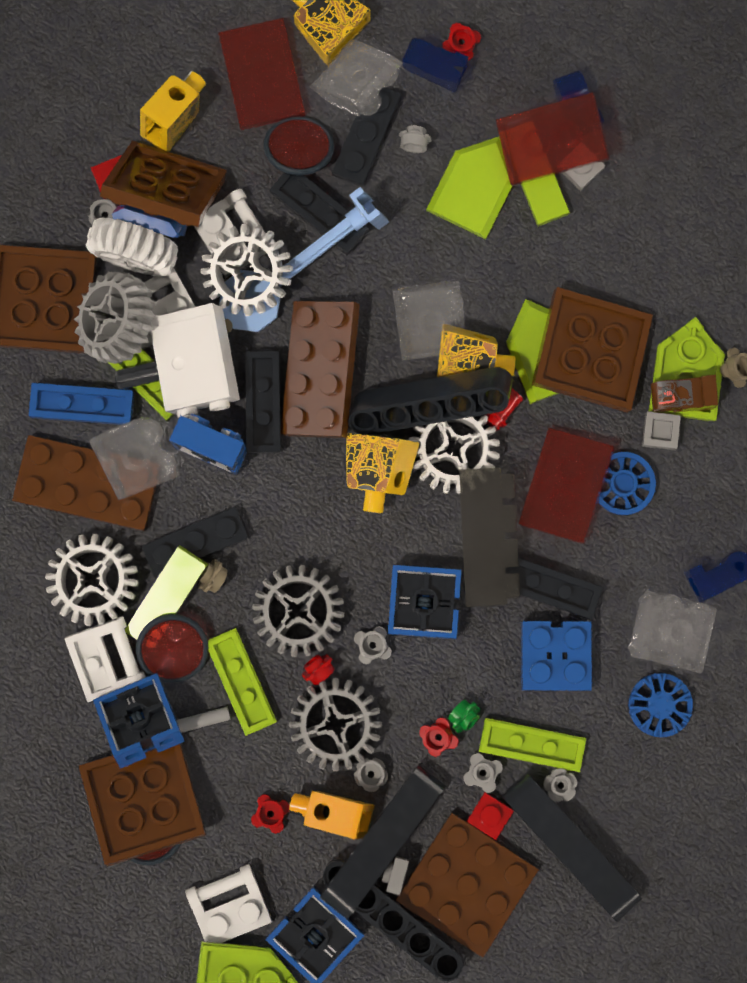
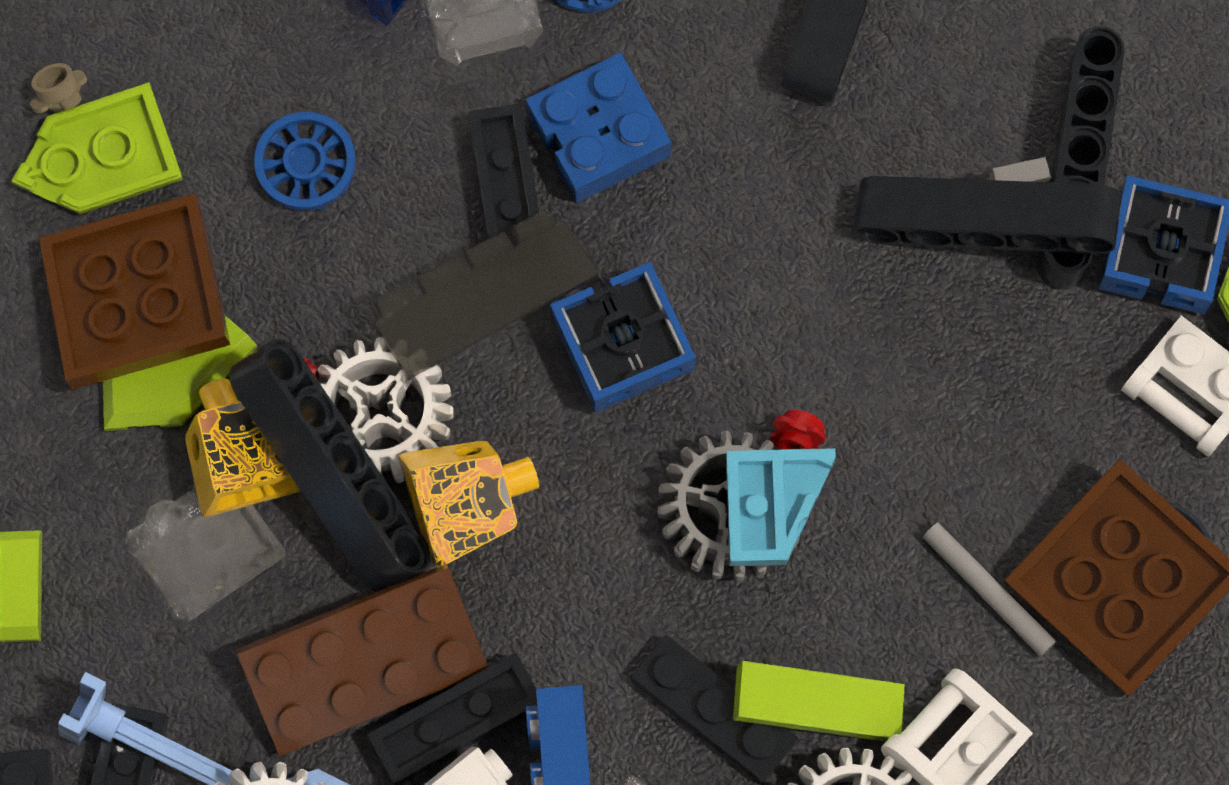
camera: 120 degrees left, 10 degrees down
(138, 720) = (1003, 658): piece -> none
(172, 648) = (886, 655): clear red wheel -> none
(212, 577) = (750, 646): dark tan plate -> none
(241, 682) = (876, 537): lime tile -> none
(261, 818) = (1047, 386): red plate -> none
(281, 627) = (771, 501): none -> medium azure wing
(308, 733) = (879, 386): light grey gear -> none
(346, 815) = (987, 280): light orange torso -> none
(380, 651) = (722, 365): light grey plate -> none
(380, 775) = (906, 277): light grey plate -> none
(430, 741) = (813, 225): red plate -> none
(464, 716) = (750, 204): green plate -> none
(467, 885) = (974, 89): reddish brown plate -> none
(473, 776) = (810, 158): light grey plate -> none
(489, 815) = (866, 107): red plate -> none
(532, 745) = (737, 101): lime tile -> none
(551, 782) = (771, 49): light grey plate -> none
(566, 486) = (349, 233): clear red tile -> none
(661, 430) = (202, 146): light grey plate -> none
(685, 394) = (133, 130): reddish brown leg -> none

